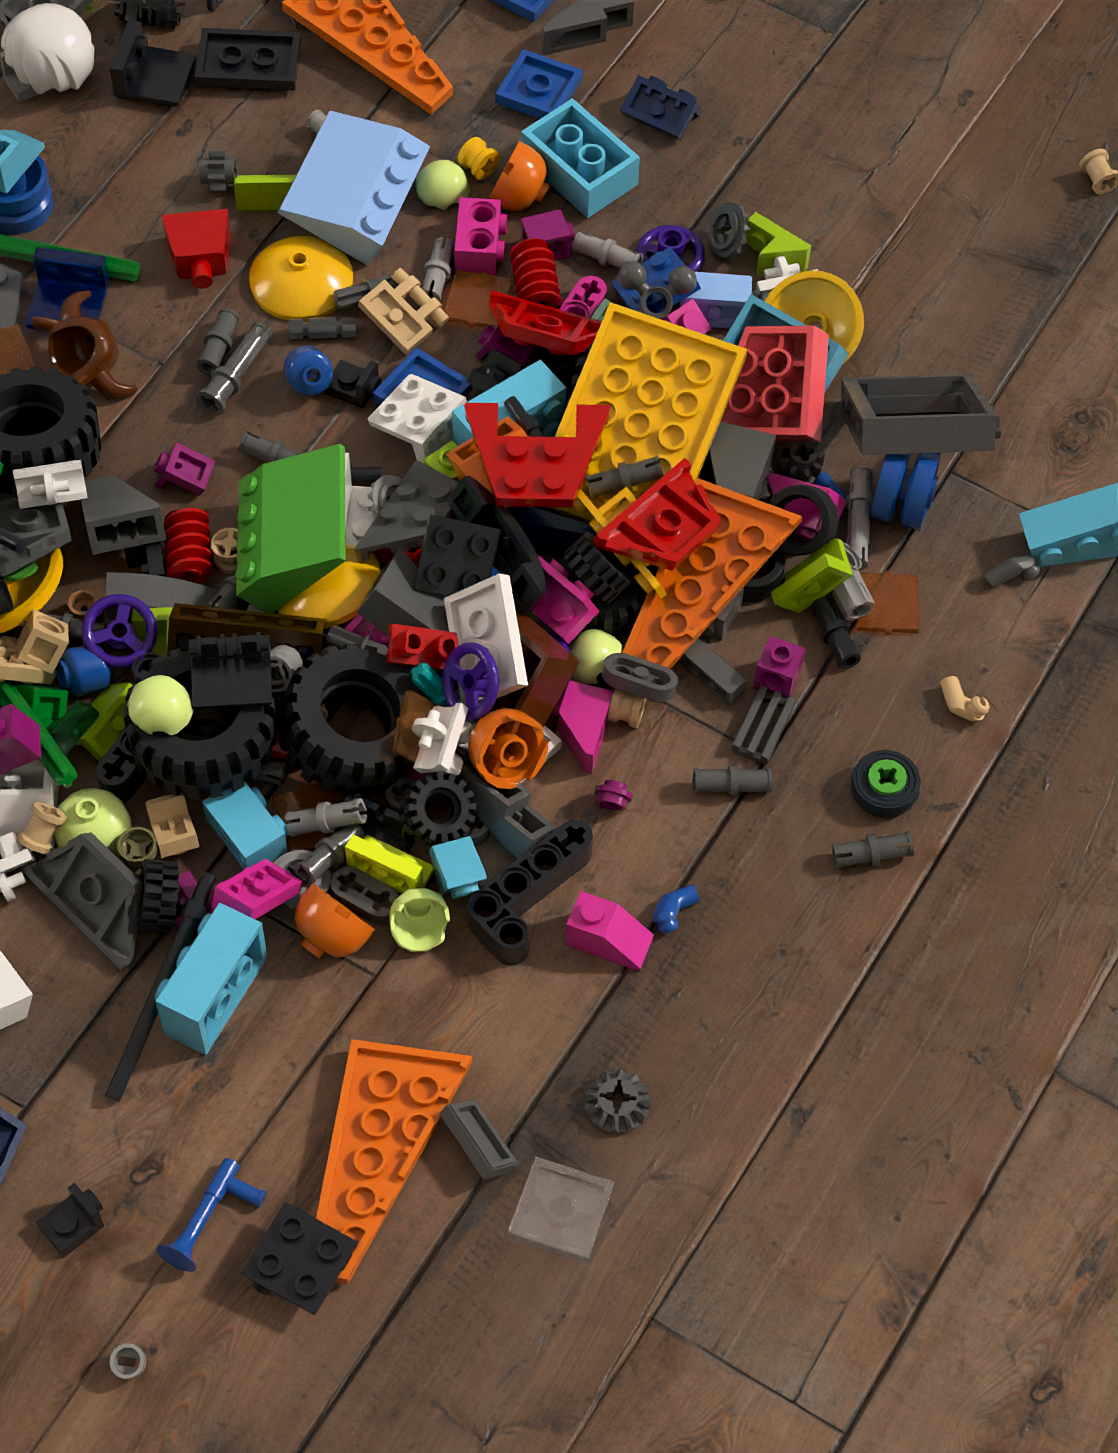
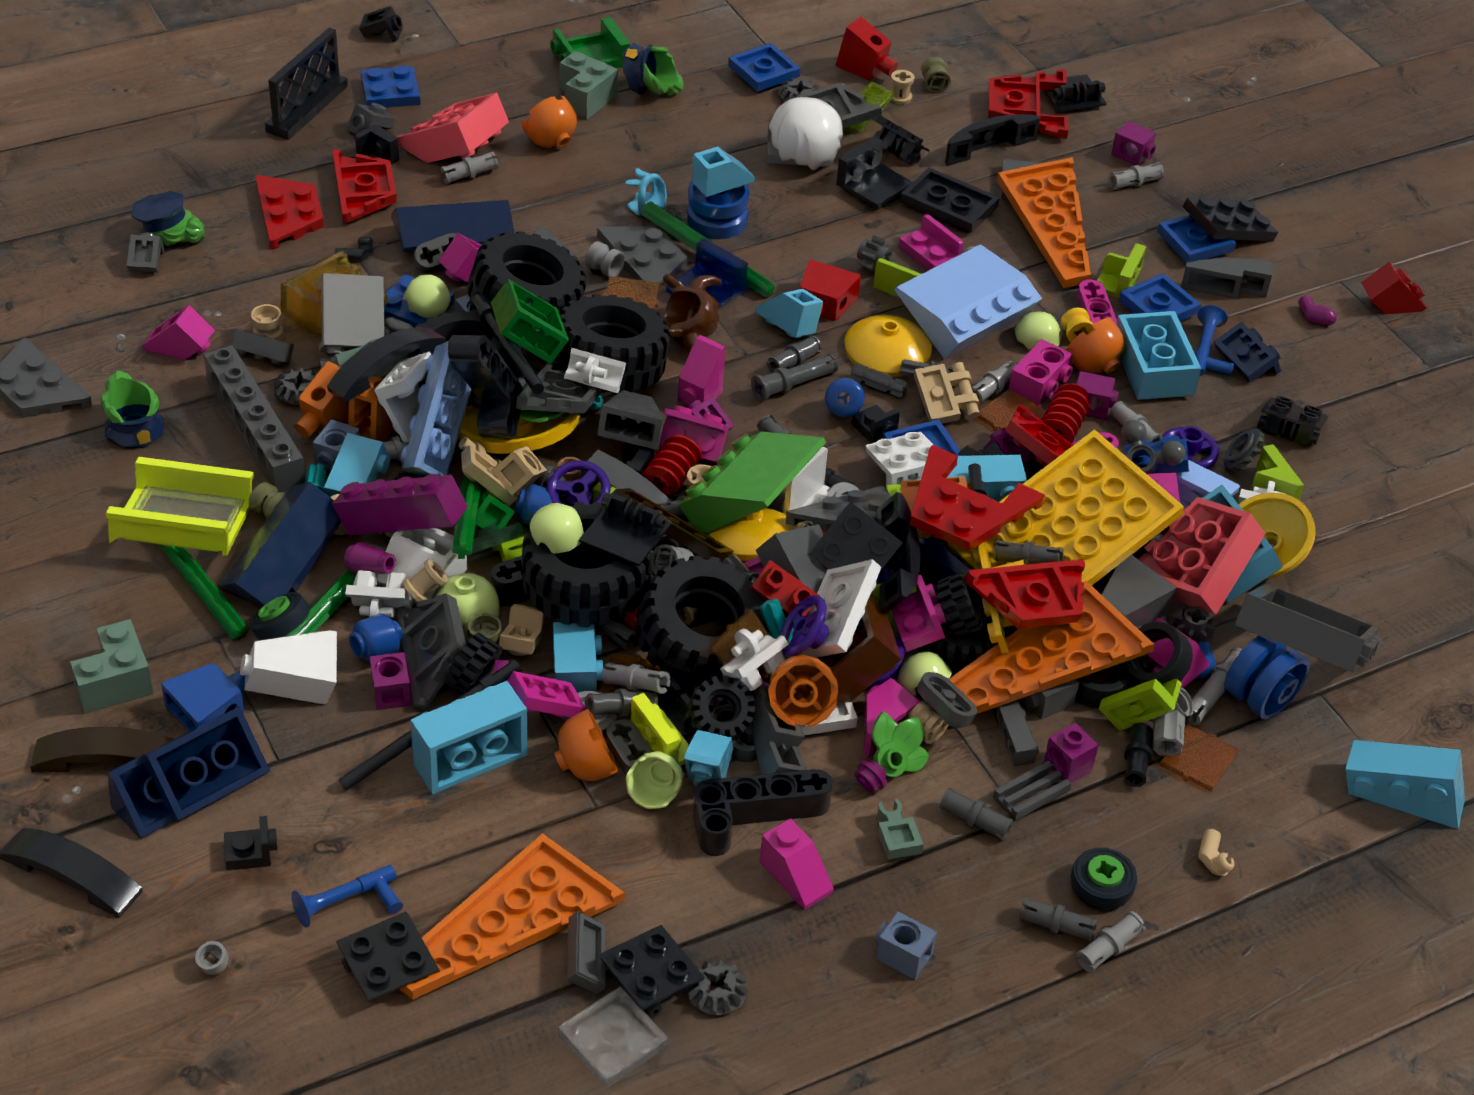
camera: 30 degrees right, 15 degrees down
(29, 918) = (375, 637): none -> blue head
(84, 970) = (390, 681): none -> magenta brick
(146, 419) = (702, 372): none -> dark pink slope
(184, 290) = (793, 312): none -> medium azure slope
(196, 490) = (705, 431): none -> dark pink bracket
(269, 129) = (931, 243): none -> dark pink bracket
(477, 68) = (1120, 271): none -> lime panel
(479, 115) = (1101, 301): none -> dark pink beam
(551, 1120) = (651, 968): none -> black hinge
(602, 82) = (1211, 317): none -> blue piece
(619, 749) = (900, 741): none -> bright green plate
(669, 906) = (862, 873): blue arm -> none
(676, 844) = (898, 834): none -> sand green plate
(694, 23) = (1316, 313): none -> magenta arm
(746, 160) = (1282, 408): none -> black hinge
(765, 943) = (916, 946): none -> sand blue brick
(931, 846) = (1110, 941): none -> light grey pin
(1011, 567) = (1324, 778): dark grey arm -> none

